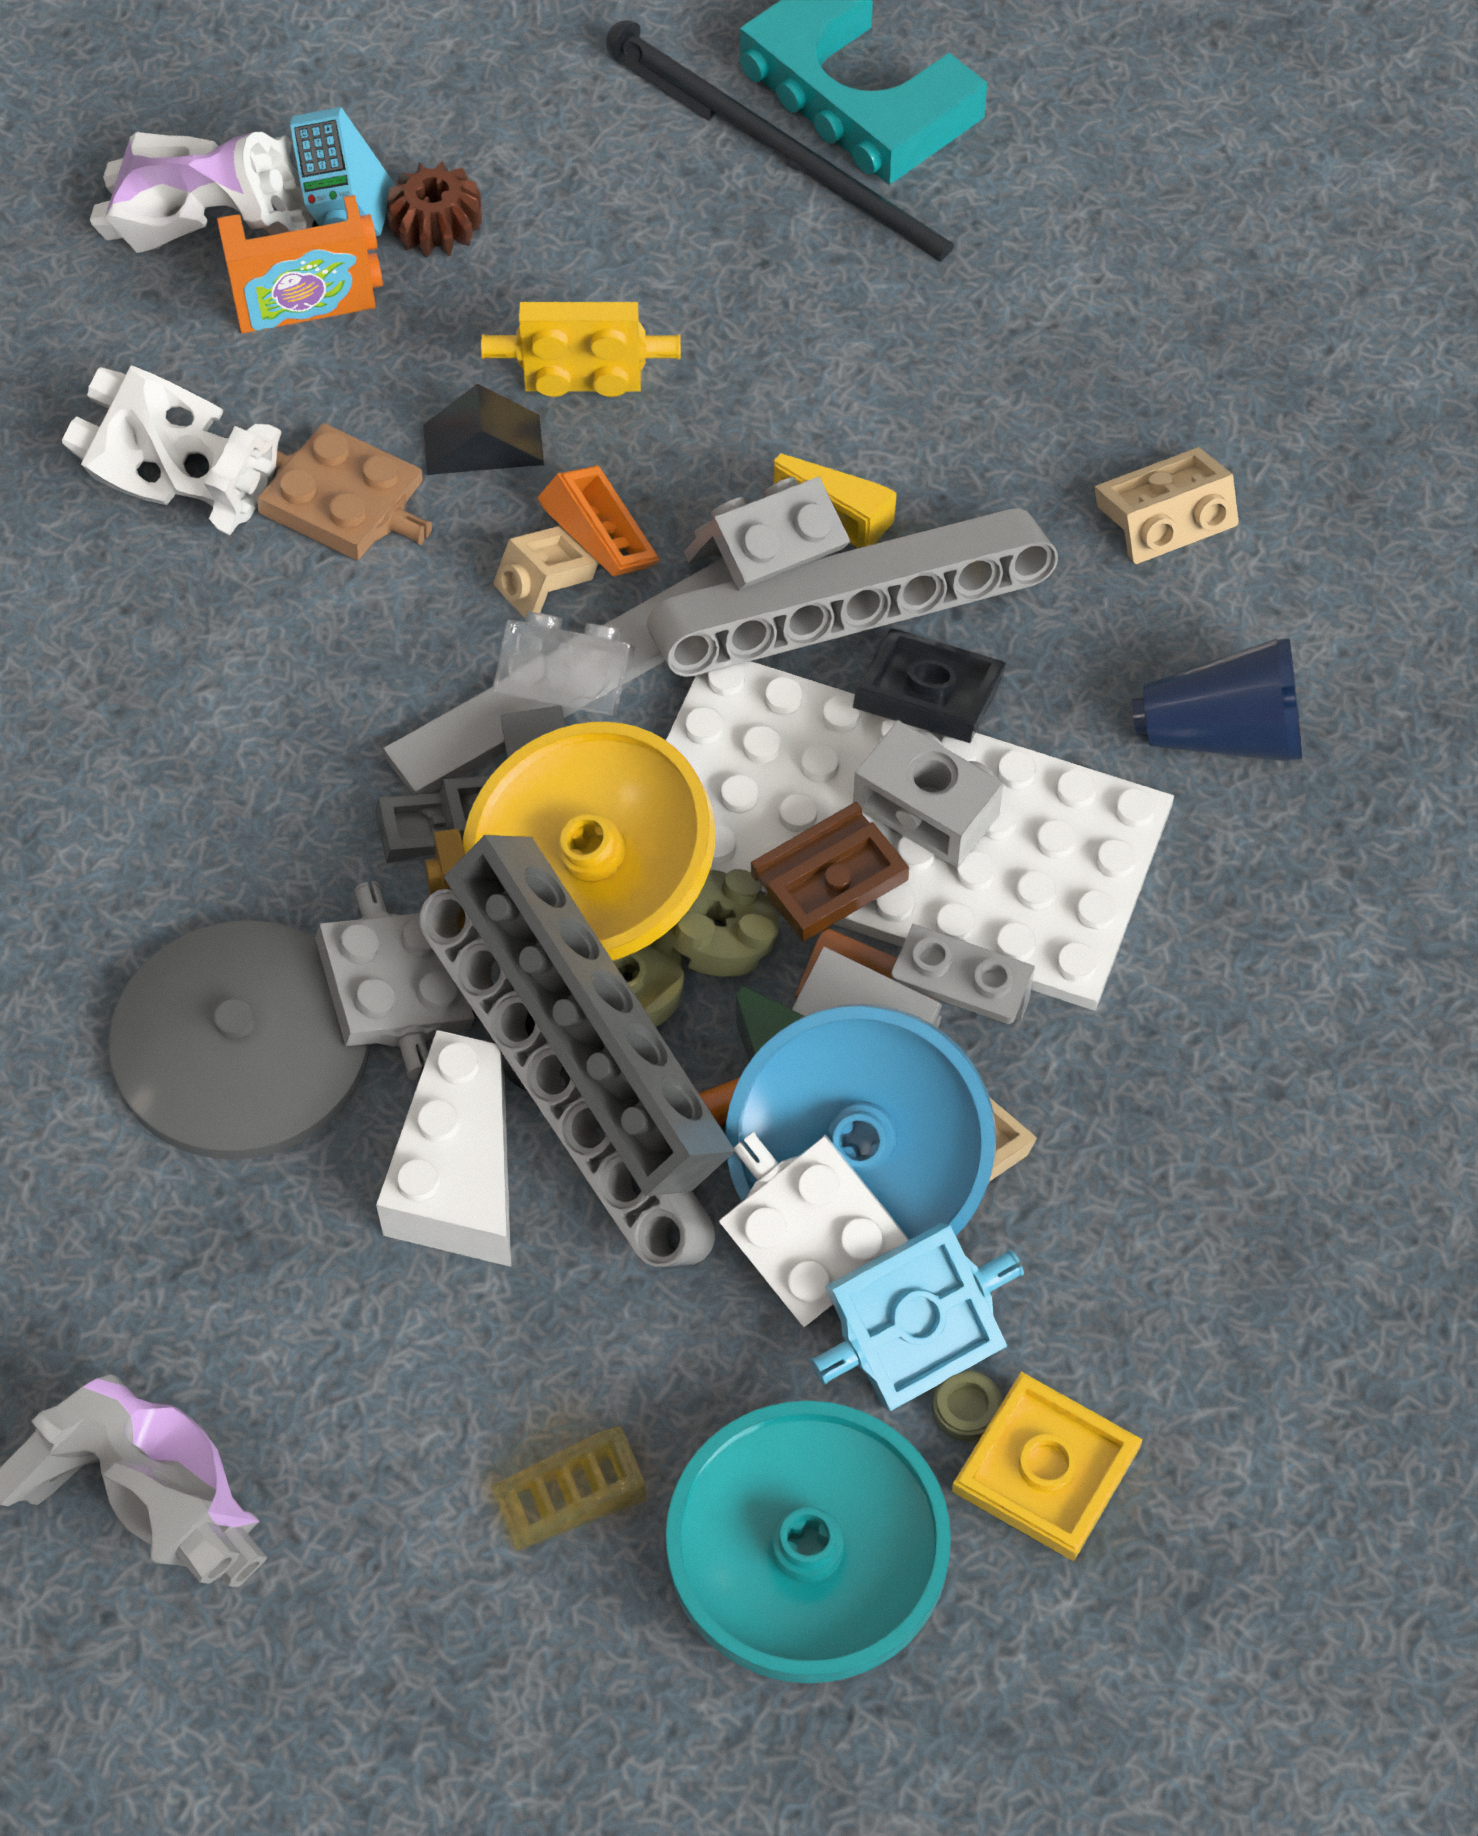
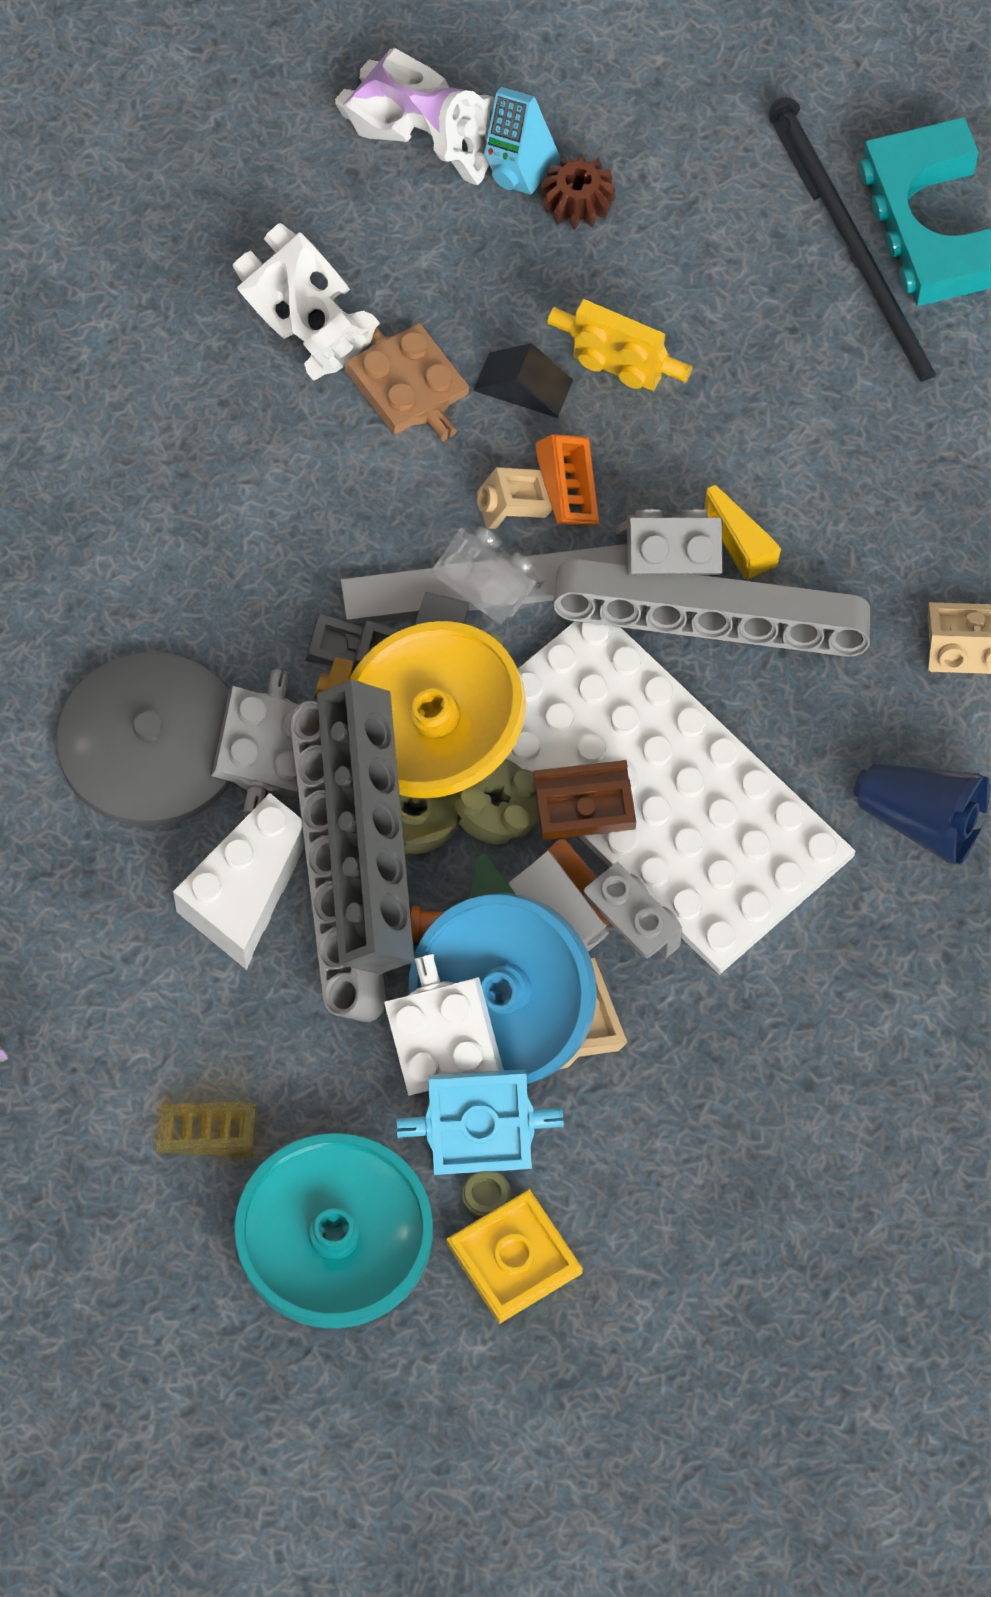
camera: 25 degrees right, 5 degrees up
(301, 271) = (456, 206): panel -> none
(929, 685) = (729, 698): black plate -> none
(942, 821) = (680, 800): light grey brick -> none

